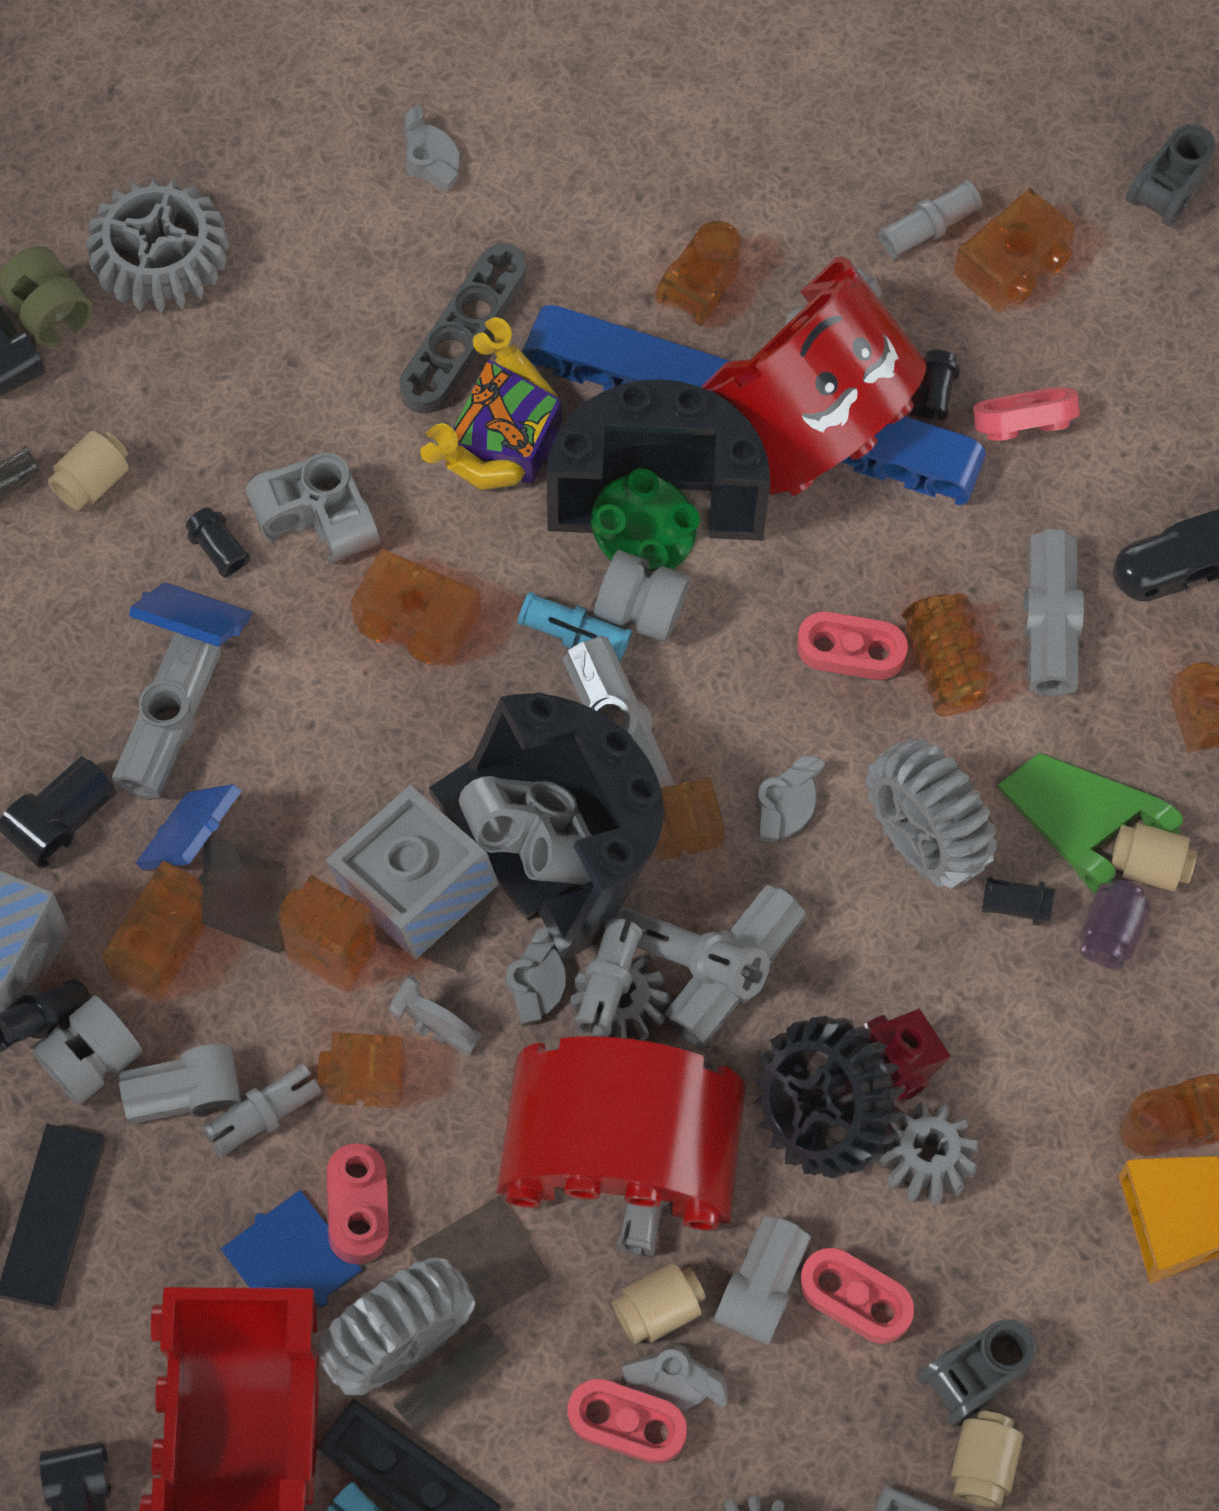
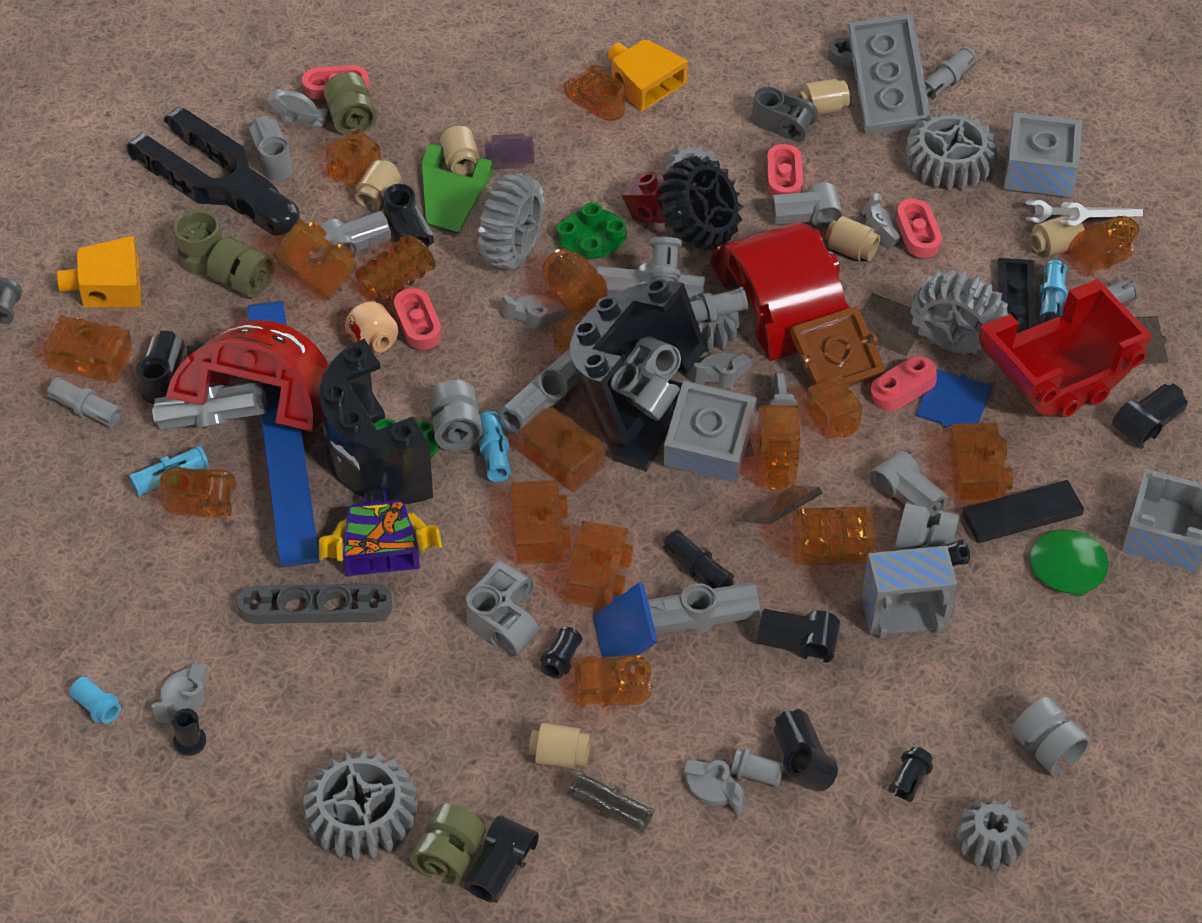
camera: 120 degrees left, 15 degrees down
(134, 565) = (608, 681): none -> clear orange piece
(135, 1171) = (978, 462): none -> clear orange brick
(188, 827) = (764, 550): blue piece -> none
(240, 762) = (697, 560): none -> black pin
(261, 1110) = (888, 444): light grey pin -> none
(294, 613) = (598, 565): none -> clear orange brick
(360, 131) = (188, 736): none -> black pin
(455, 1133) = (838, 347): none -> dark orange plate
(471, 67) = (101, 706): none -> medium azure pin
(482, 683) = (562, 448): none -> clear orange brick
(762, 263) = (149, 478): none -> medium azure pin
(783, 849) = (574, 280): none -> clear orange piece
(859, 575) = (374, 324): none -> light nougat head
(889, 952) = (592, 232): none -> green dish
(940, 316) = (159, 365): none -> black piece
(1006, 546) = (296, 257): none -> clear orange brick
(1039, 717) = (405, 215): none -> black piece
(1044, 408) = (209, 308): coral plate -> none
(1069, 468) = (240, 266): none -> olive wheel
(1134, 438) = (195, 236): none -> olive wheel
(1139, 320) = (105, 274): none -> light orange torso
(1140, 716) = (375, 182): none -> tan brick

